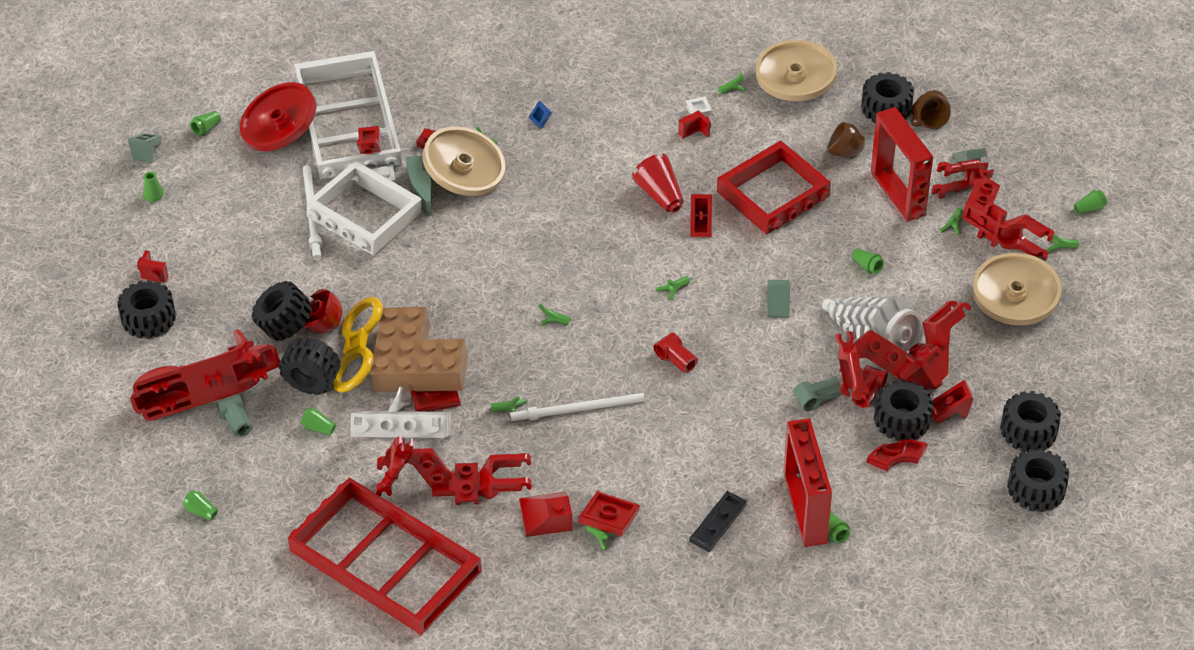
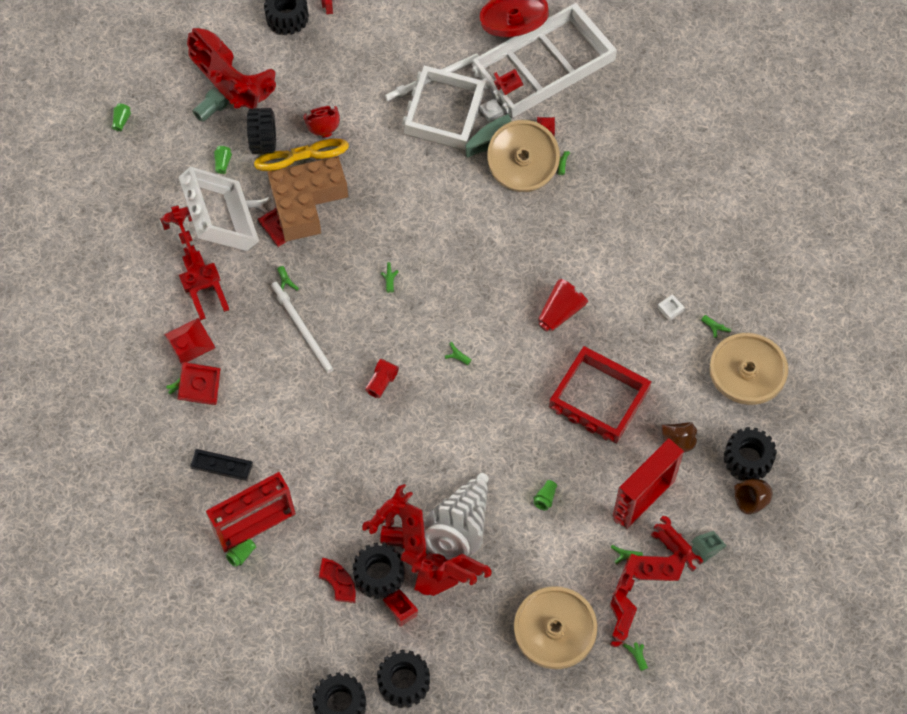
camera: 70 degrees right, 15 degrees up
(281, 310) = (310, 93): black tyre -> none
(431, 538) = (87, 222): red window -> none
(540, 114) = (608, 193): blue slope -> none
(693, 123) = (648, 308): red bracket -> none
(701, 215) = (539, 349): red slope -> none
(778, 298) = (475, 437): sand green slope -> none
(812, 395) = (374, 494): sand green piece -> none
(1091, 202) = (701, 669): bright green cone -> none

